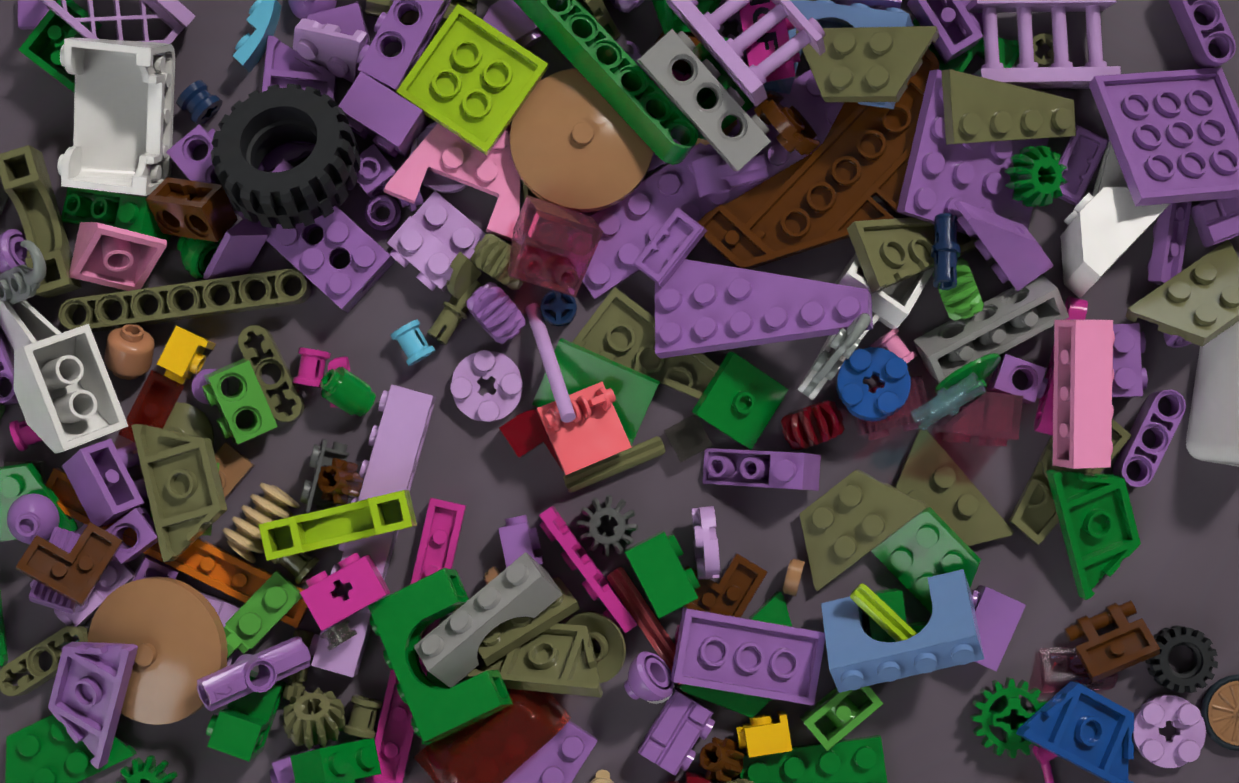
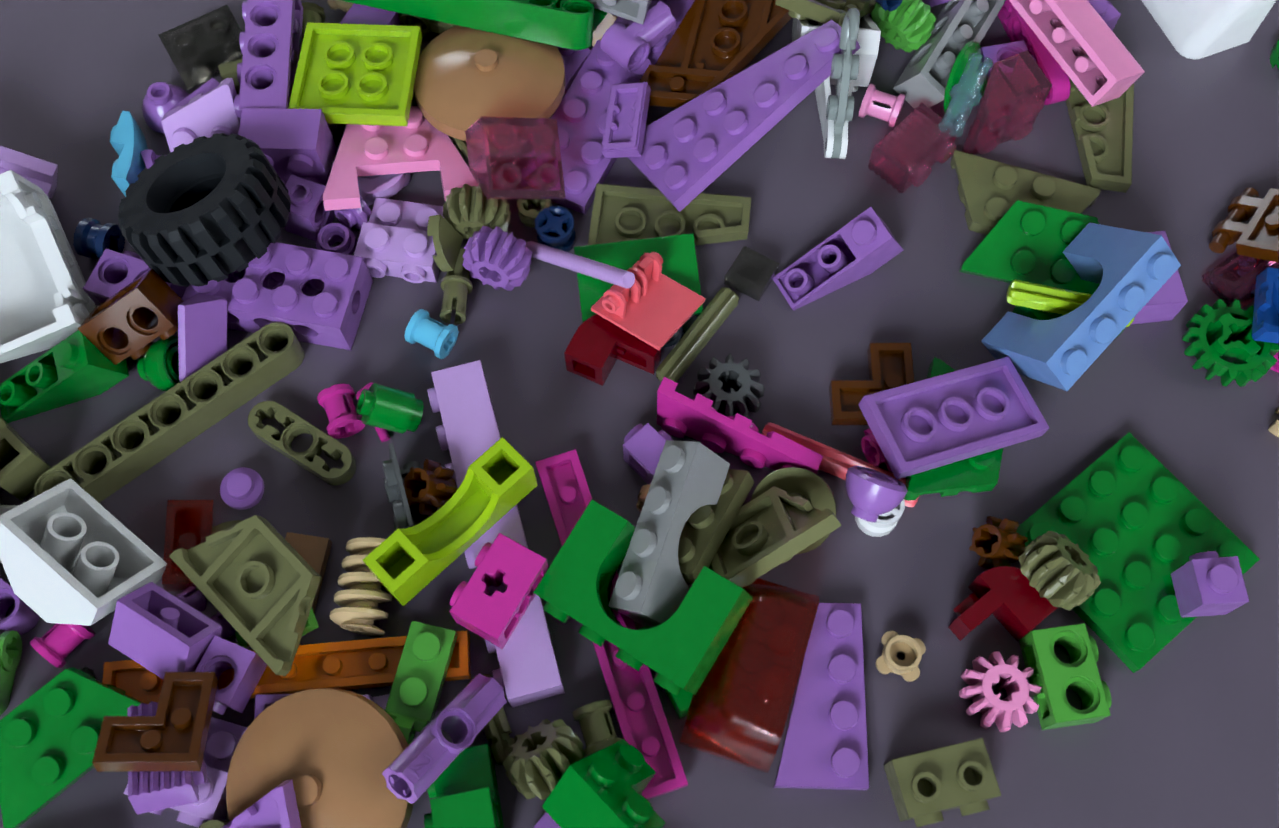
camera: 30 degrees left, 20 degrees down
(32, 516) = (86, 716): medium lavender brick -> none
(114, 256) = (70, 403): bright pink slope -> none
(129, 351) = (134, 495): nougat head -> none
(184, 354) = (197, 467): yellow brick -> none
(247, 397) = (289, 469): bright green brick -> none
(298, 565) = (428, 608): olive bush -> none
(338, 634) = (518, 640): clear smoke bush -> none
(507, 386) = (523, 315): lavender plate -> none
(662, 574) = (811, 387): green brick -> none
(676, 731) = (933, 545): medium lavender brick -> none
(705, 543) = (837, 341): lavender plate -> none
(740, 400) = (776, 213): green plate -> none
(765, 735) = (1023, 492): yellow brick -> none
(793, 577) = (937, 336): medium nougat tile -> none
(812, 425) = (857, 191): dark red gear -> none
(839, 714) = (1077, 425): bright green brick -> none
(852, 523) = (956, 255): olive wing -> none
(868, 363) = (888, 107): blue plate -> none
(1094, 524) = (1164, 139): green wing -> none
(1163, 428) = (1151, 45): medium lavender beam -> none

